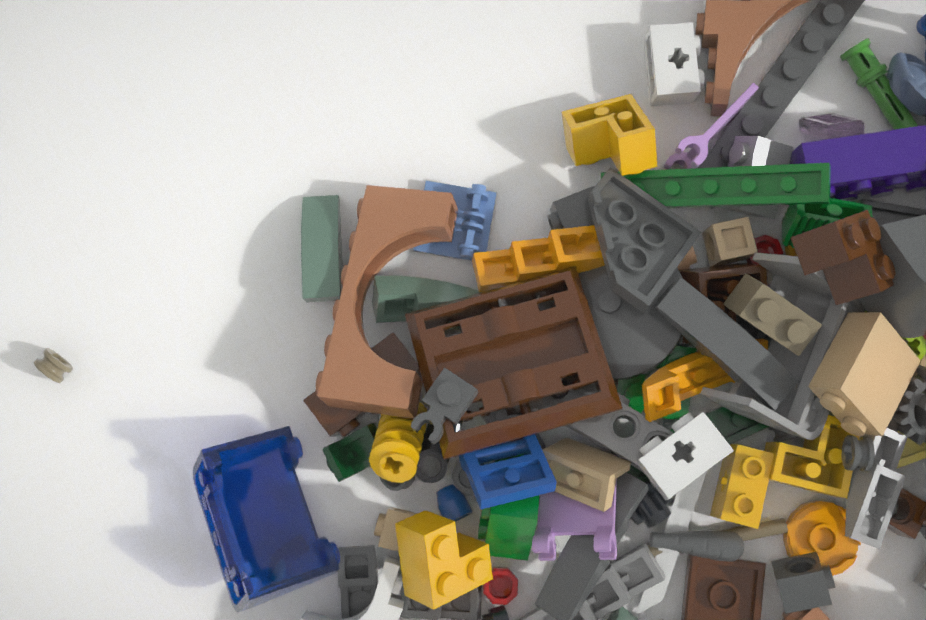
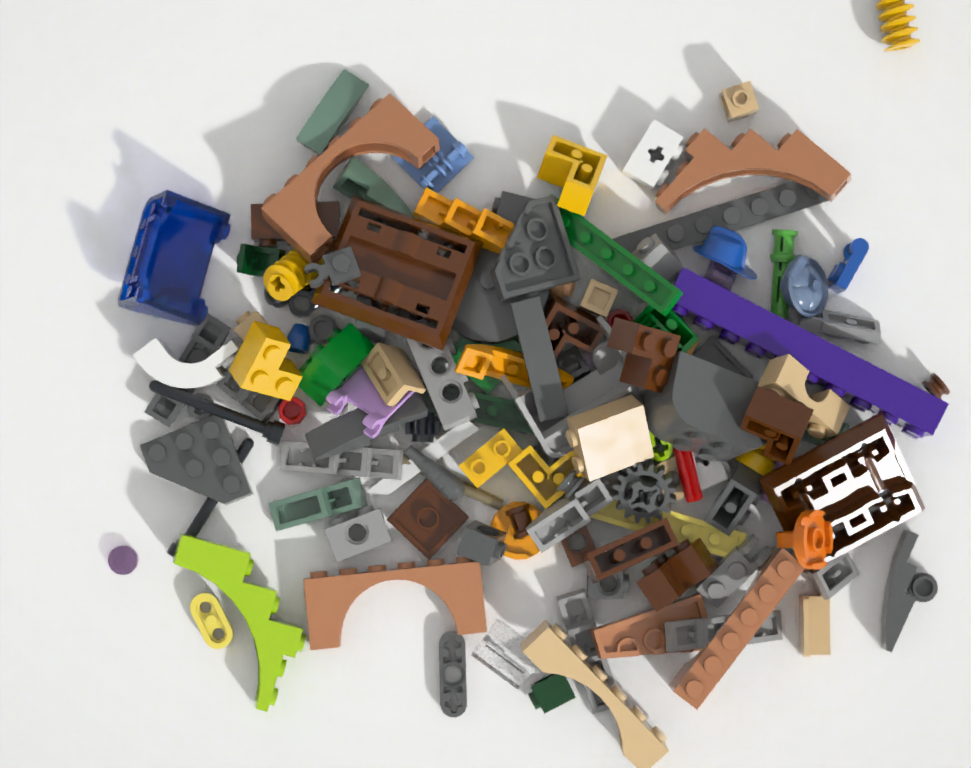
camera: 40 degrees right, 5 degrees up
(53, 365) = (106, 66): dark tan bush -> none
(510, 478) = (345, 344): blue plate -> none
(699, 143) = (619, 222): lavender flag -> none
(706, 449) = (472, 413): white brick -> none
(772, 314) = (581, 361): dark tan brick -> none
(815, 100) = (727, 249): none -> blue piece
(824, 529) = (520, 519): none -> reddish brown bush

